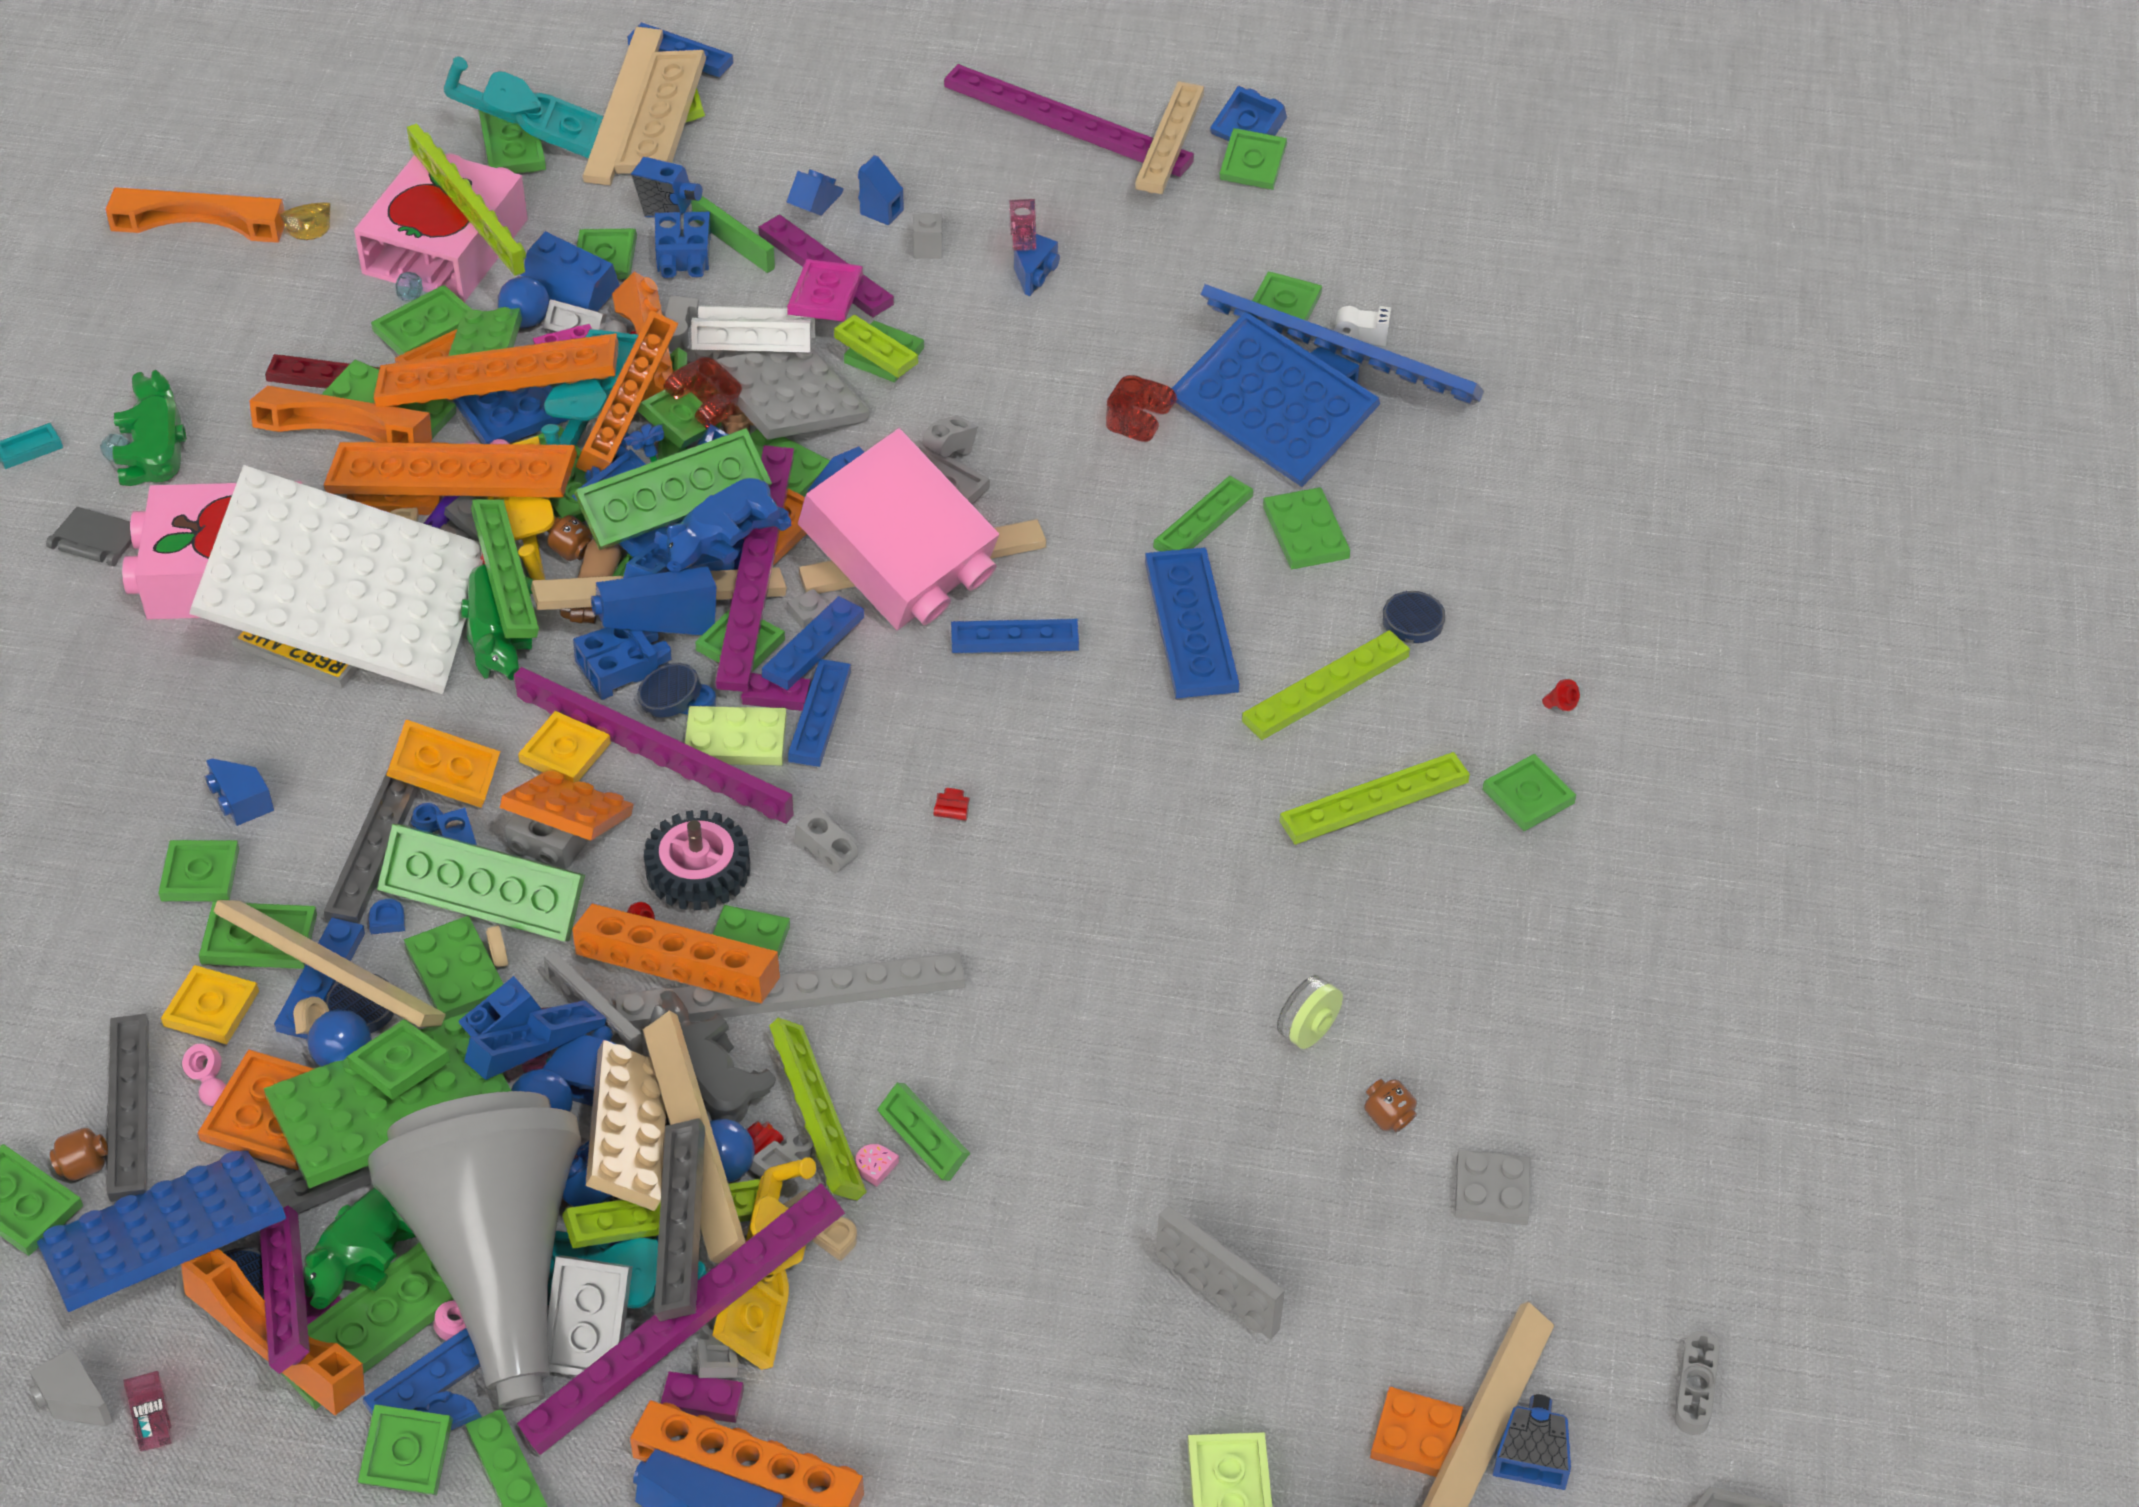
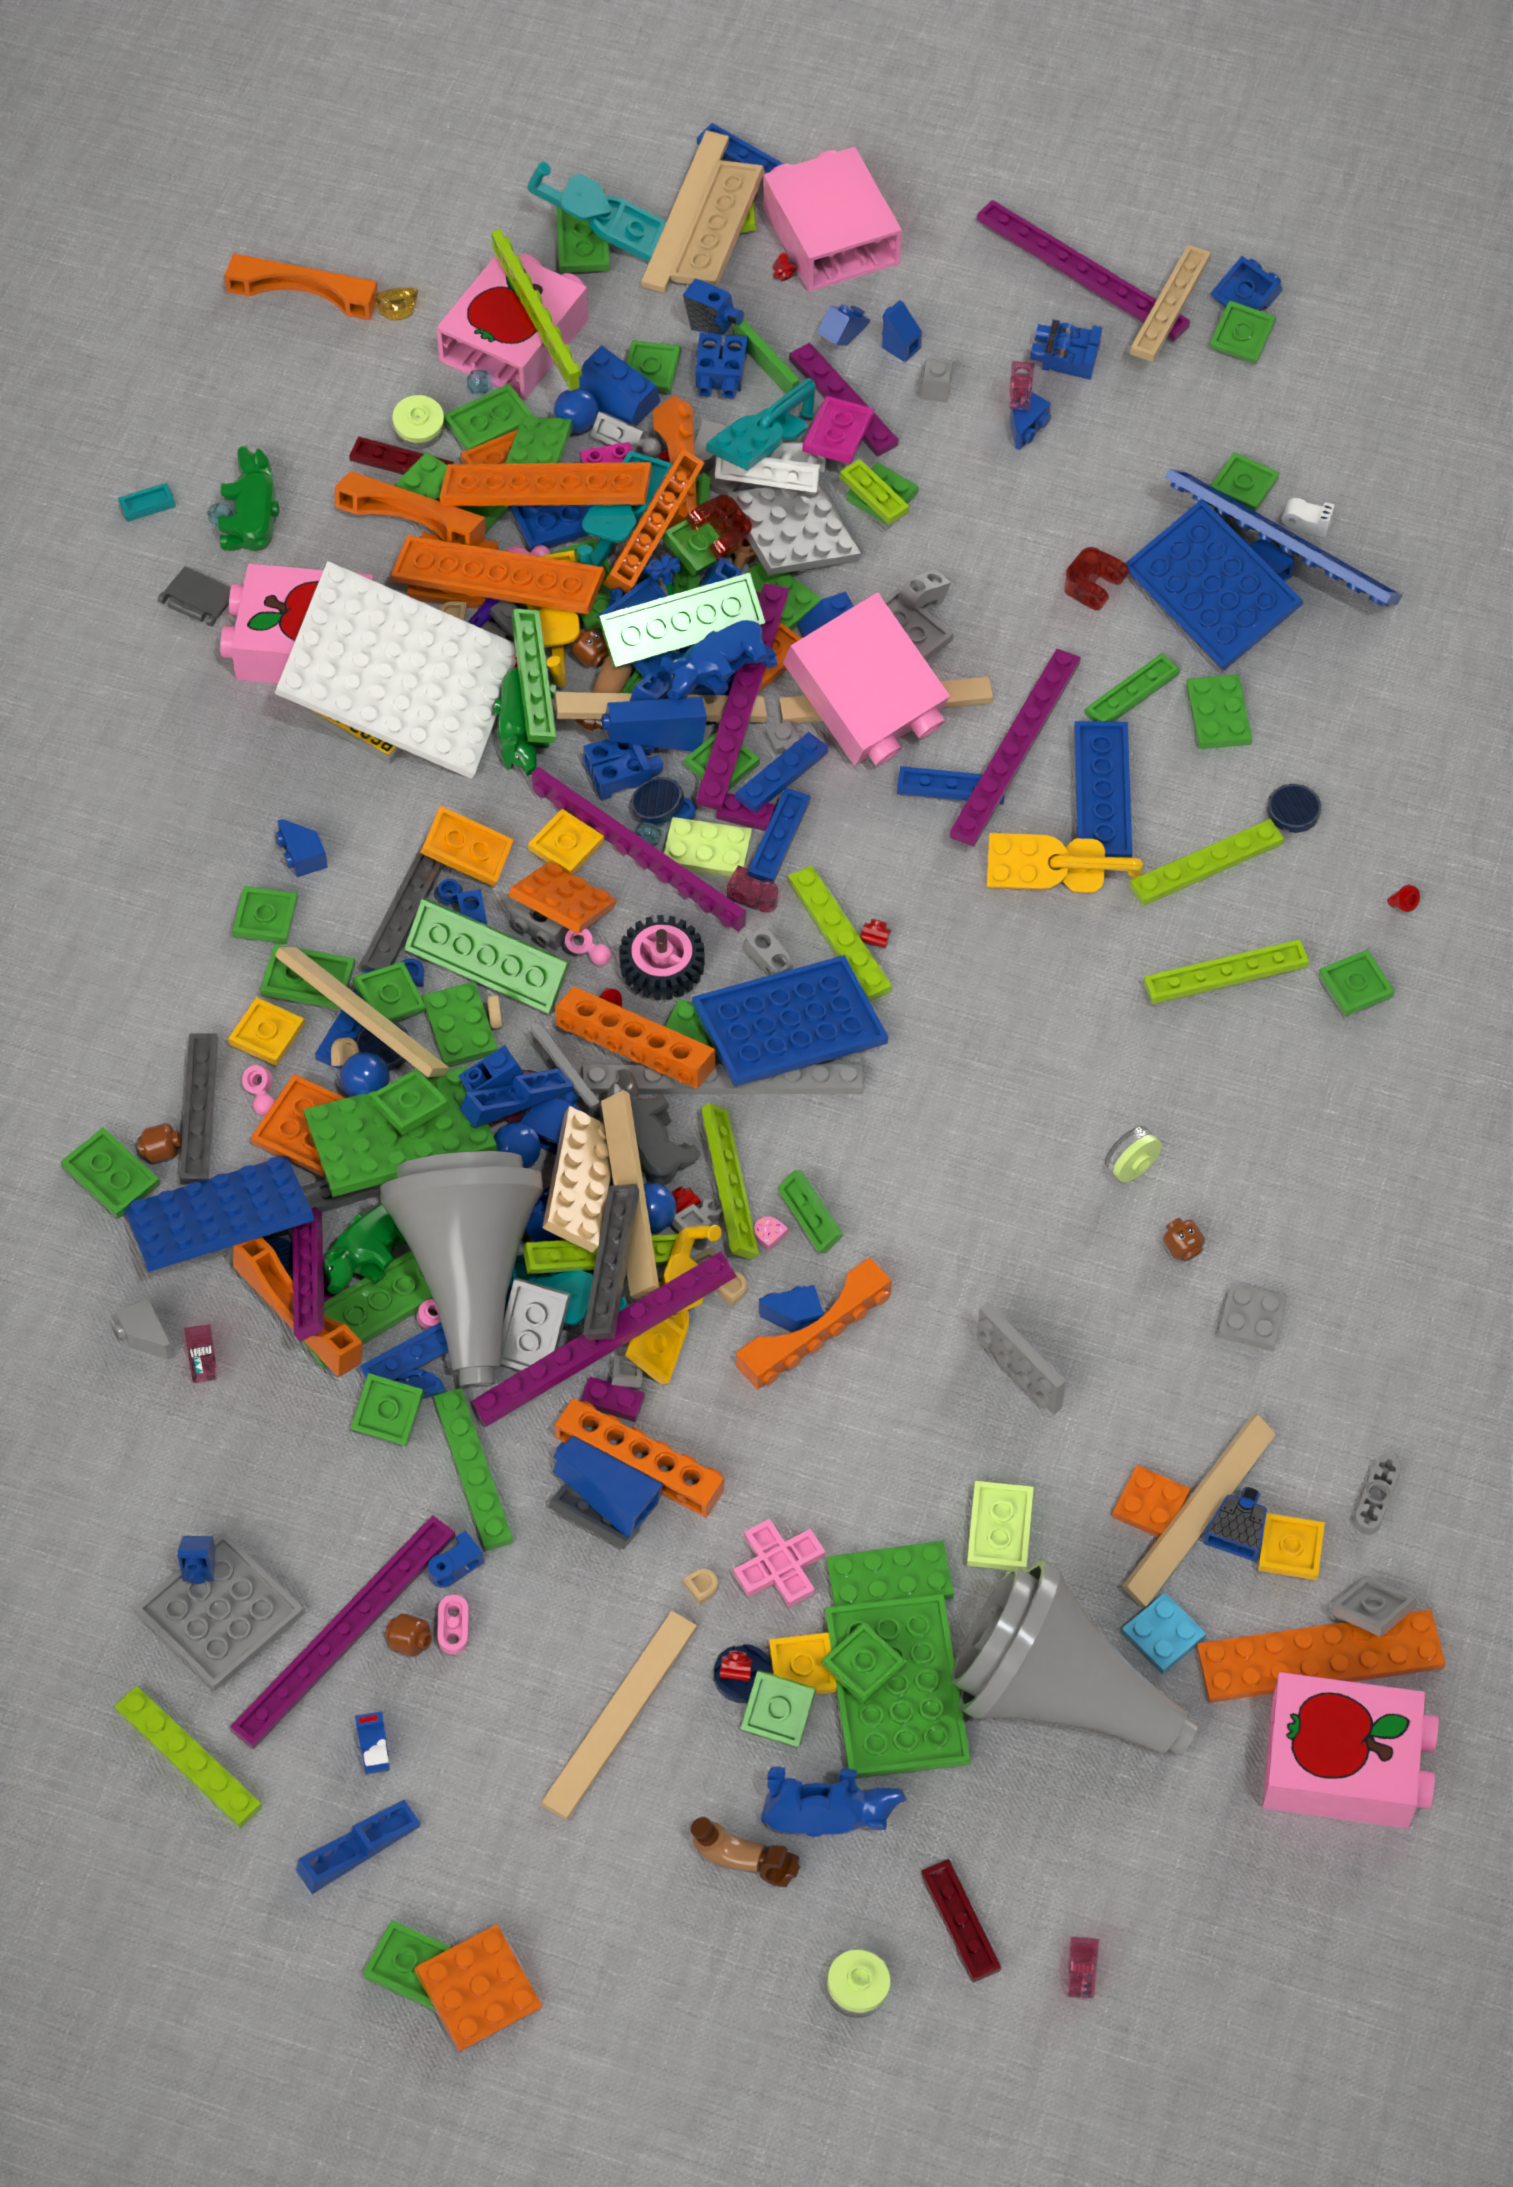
camera: 10 degrees right, 10 degrees up
(342, 332) = (418, 422): none -> yellowish green piece
(364, 938) = (390, 992): none -> bright green plate
(619, 867) = (598, 954): none -> bright pink plate
(664, 723) = (649, 833): none -> clear light blue tile
(733, 301) = (758, 435): none -> teal plate
(739, 148) = (783, 268): none -> red plate
(786, 94) = (831, 218): none -> bright pink brick
(797, 775) = (752, 892): none -> clear pink leg
(863, 912) = (789, 1020): none -> blue plate
(900, 1313) = (771, 1355): none -> orange arch
(909, 811) = (839, 931): none -> lime plate
(920, 1253) = (791, 1309): none -> blue slope
(1065, 192) = (1067, 349): none -> blue hips
(1080, 589) = (1014, 748): none -> magenta plate
(1114, 706) = (1023, 860): none -> yellow plate
(1607, 1463) = (1291, 1546): none -> yellow plate

